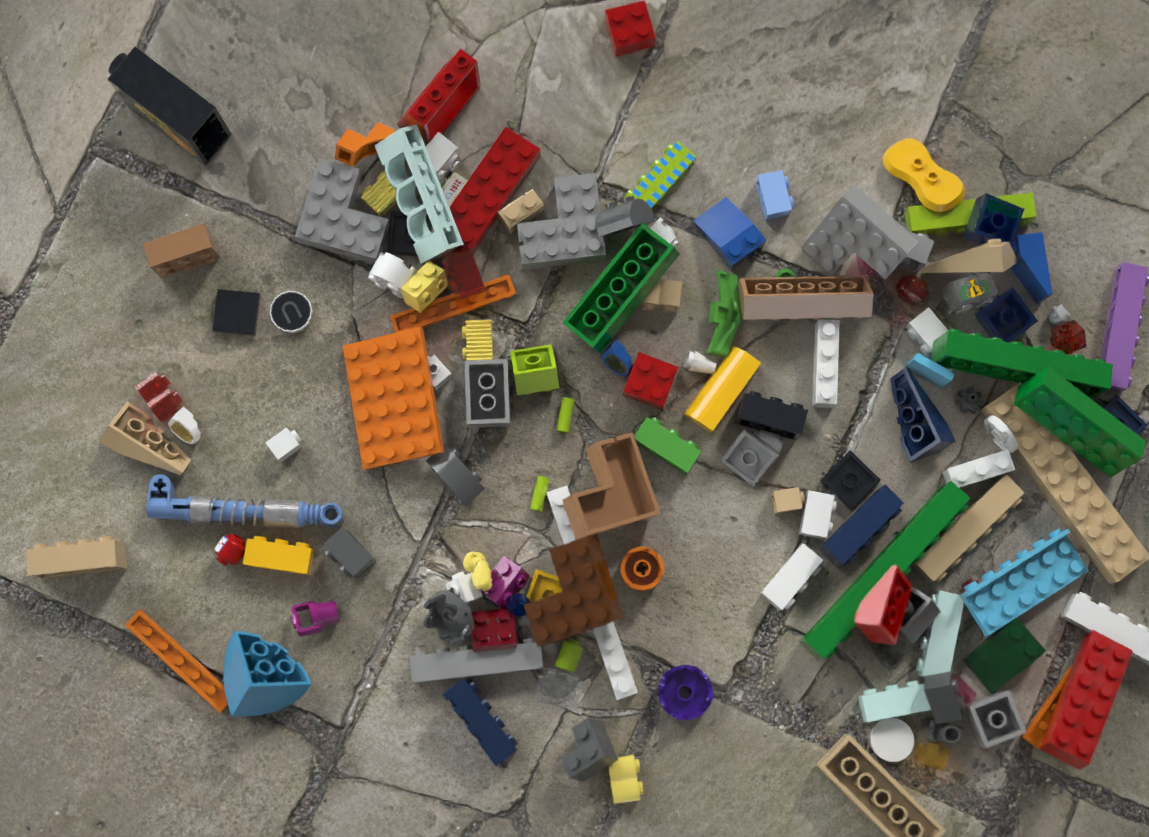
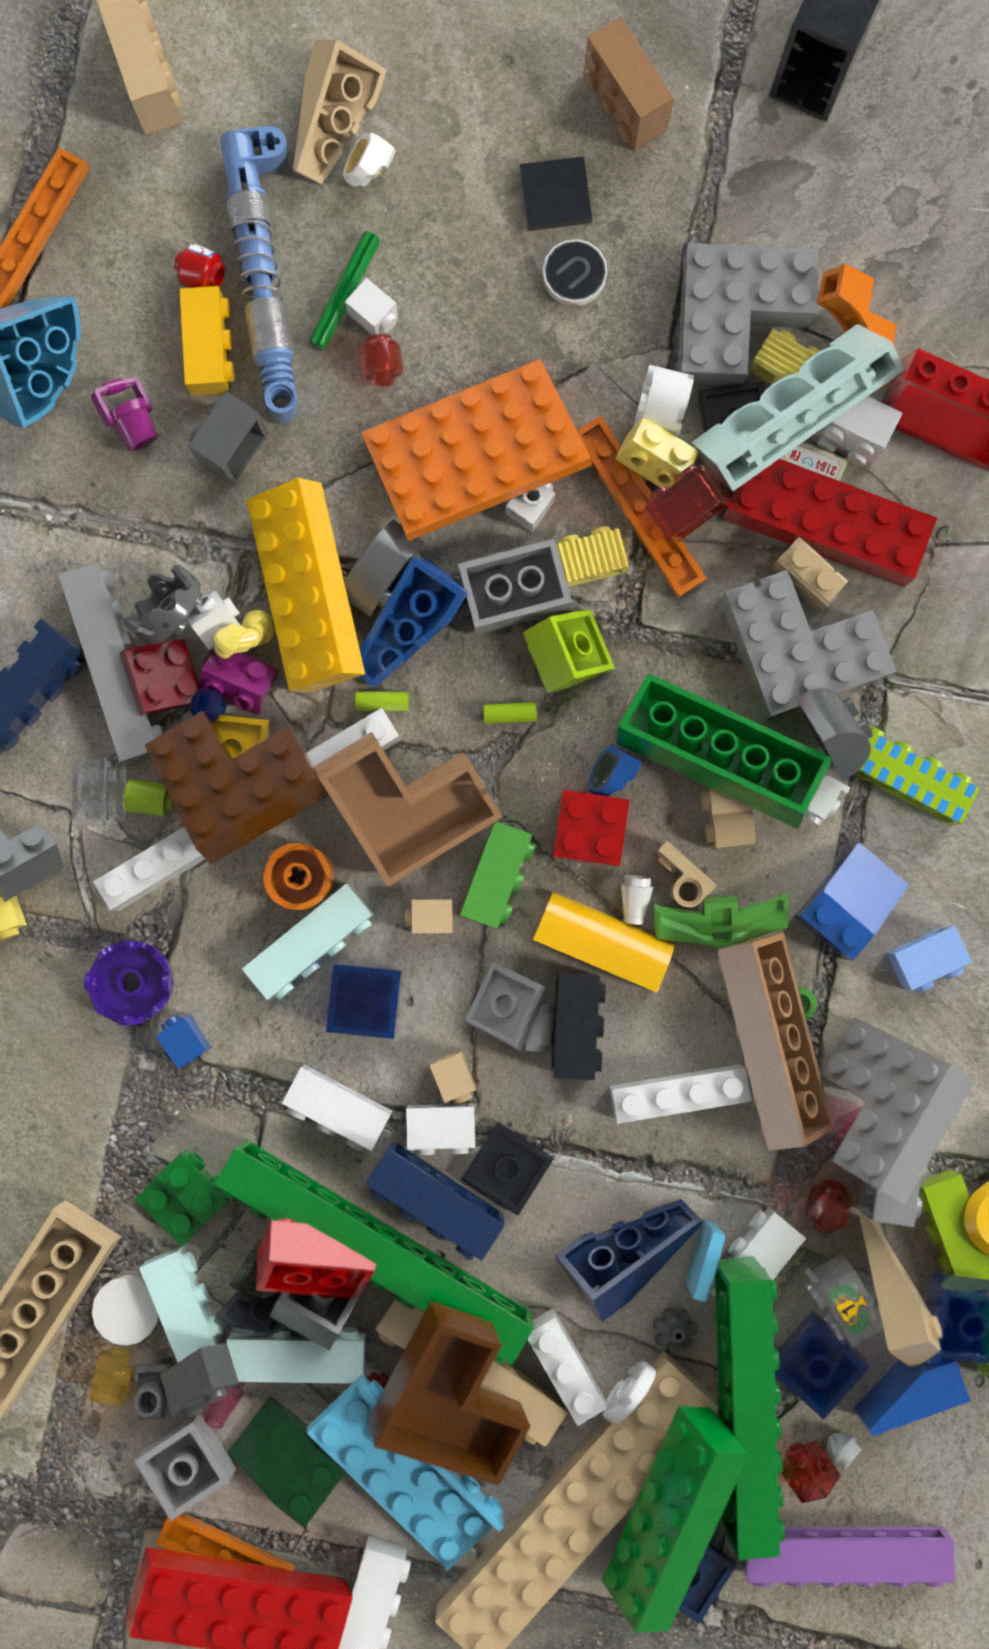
camera: 80 degrees right, 5 degrees up
(159, 396) = (403, 112): clear red brick -> none
(266, 460) = (345, 287): none -> green axle
(319, 445) = (381, 360): none -> clear red head
(457, 524) = (305, 586): none -> yellow brick
(491, 460) = (413, 615): none -> blue wedge
(681, 334) = (672, 861): none -> tan plate
(683, 492) = (430, 916): none -> tan brick
(683, 572) = (308, 942): none -> light aqua brick
(728, 544) = (364, 1000): none -> clear blue brick
(729, 666) = (182, 1040): none -> blue brick
(828, 687) = (182, 1197): none -> green plate
(910, 657) = (250, 1315): none -> black tile
(985, 547) = (436, 1403): none -> reddish brown piece

